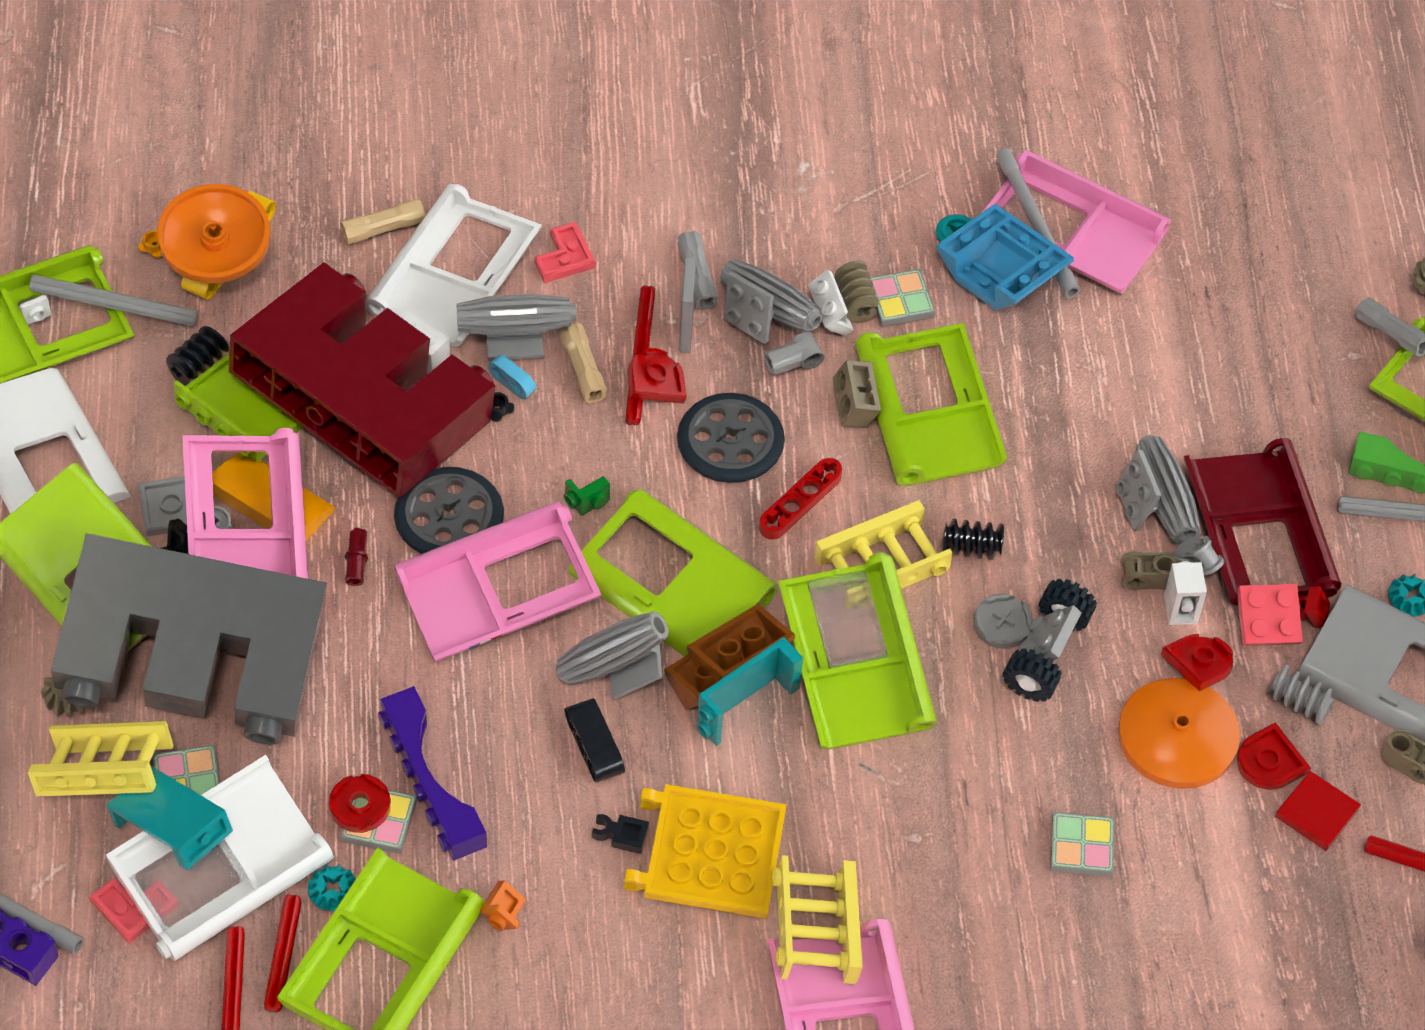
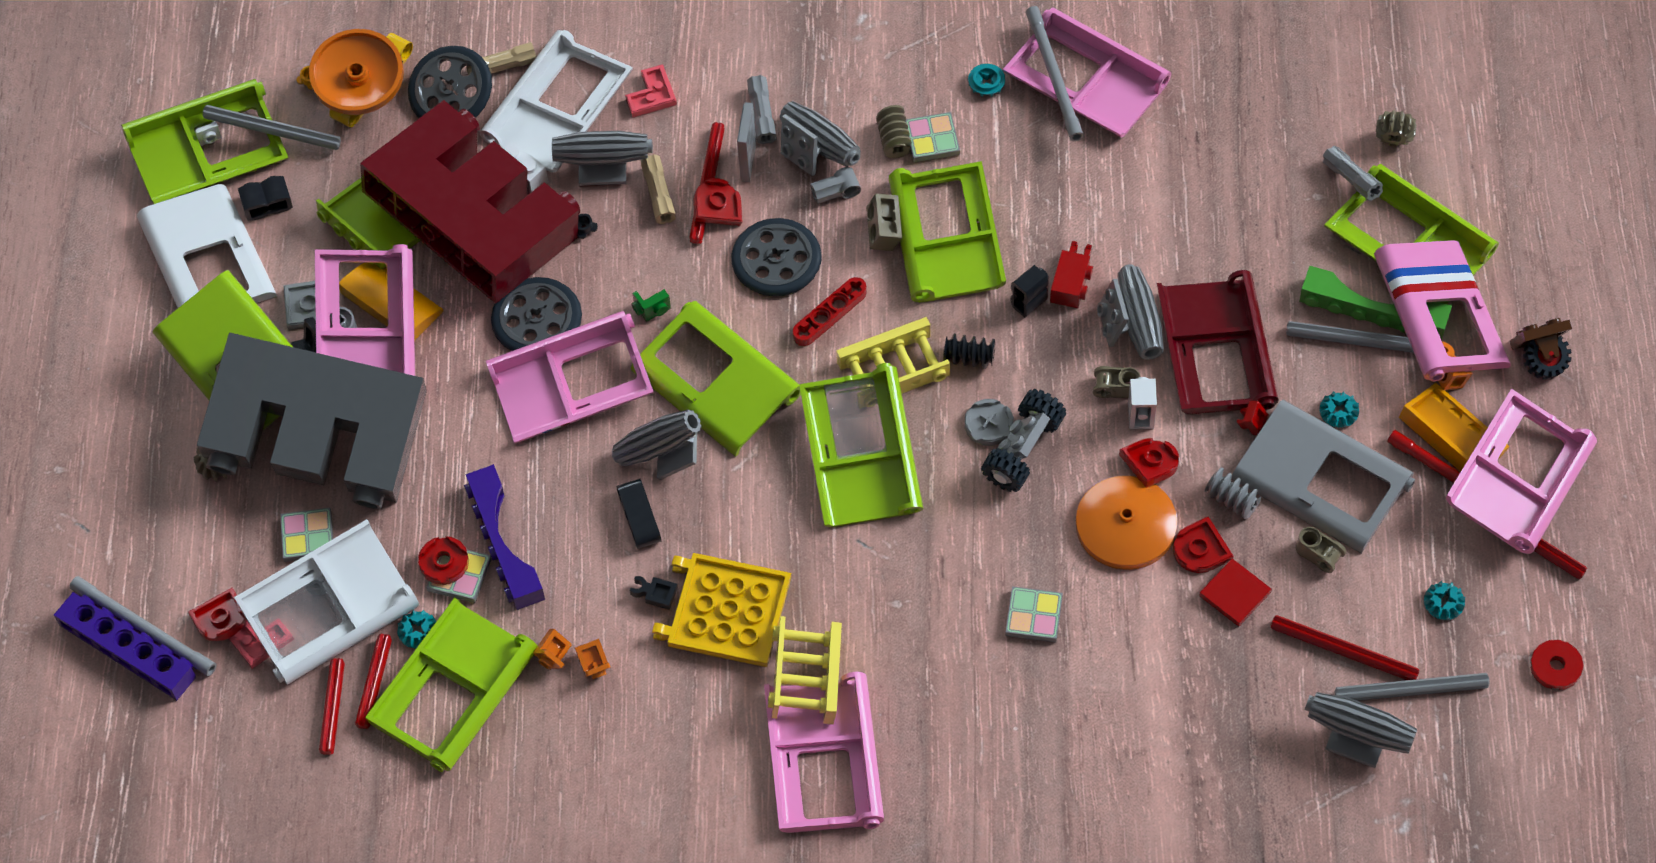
camera: 10 degrees right, 5 degrees up
(84, 881) = (218, 617): none -> red tile
(101, 777) = (236, 533): light yellow fence -> none
(109, 382) = (265, 197): none -> black brick
(174, 817) = (288, 567): teal panel -> none
(195, 353) = (336, 174): black piece -> none
(335, 216) = (430, 67): none -> dark grey wedge
(356, 557) = (456, 352): dark red axle -> none
(512, 376) = (597, 200): medium azure beam -> none
(553, 916) = (592, 659): none -> orange bracket
(723, 652) = (752, 445): dark orange slope -> none
(776, 662) = (764, 469): teal panel -> none
(829, 299) = (870, 142): white bracket -> none
(1001, 257) = (1018, 104): dark azure slope -> none
(1037, 467) = (1029, 290): none -> black brick
(1082, 451) = (1071, 276): none -> red hinge
(1199, 550) = (1157, 368): light grey piece -> none
(1269, 614) = (1214, 423): coral plate -> none

